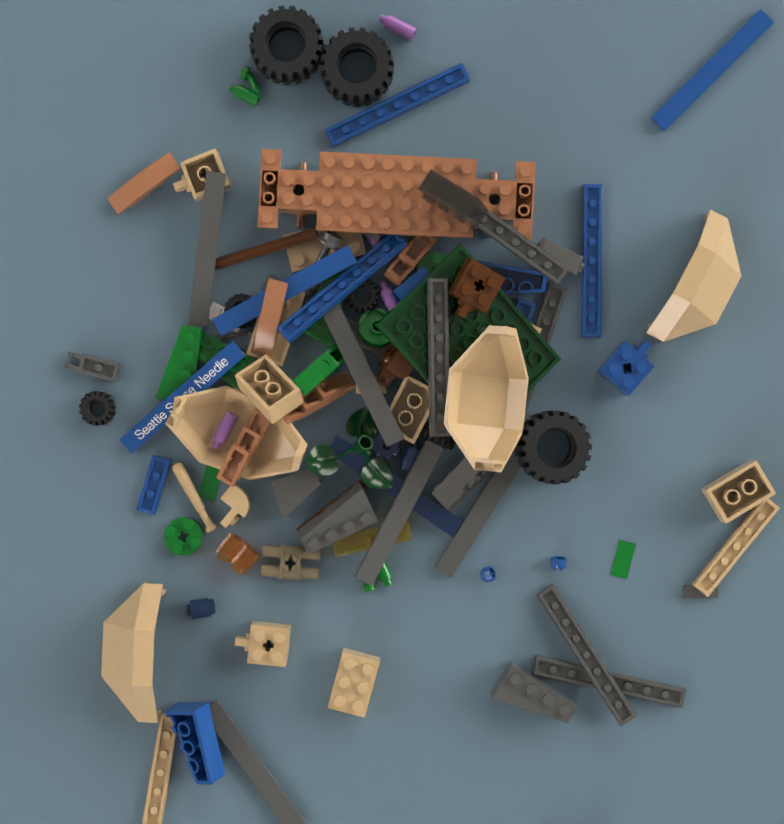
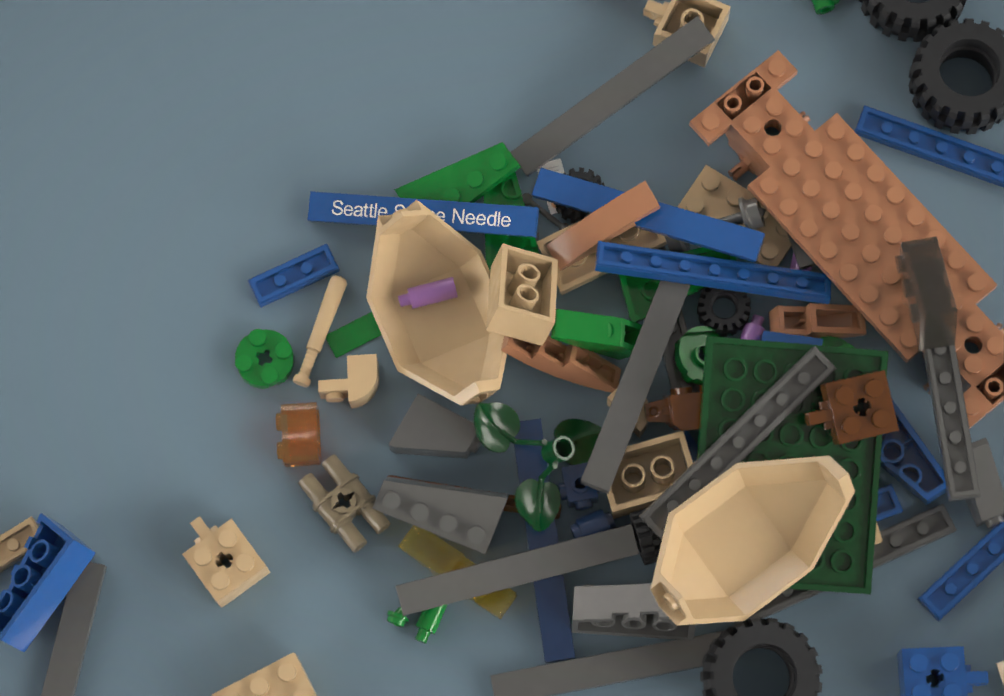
camera: 55 degrees right, 15 degrees down
(86, 403) = (320, 123): black tyre -> none
(95, 366) = (368, 97): dark grey hinge -> none
(130, 651) = (74, 411): tan panel -> none
(201, 608) = (198, 450): dark blue brick -> none
(243, 449) = (428, 332): nougat slope -> none
(266, 248) = (674, 158): reddish brown axle -> none

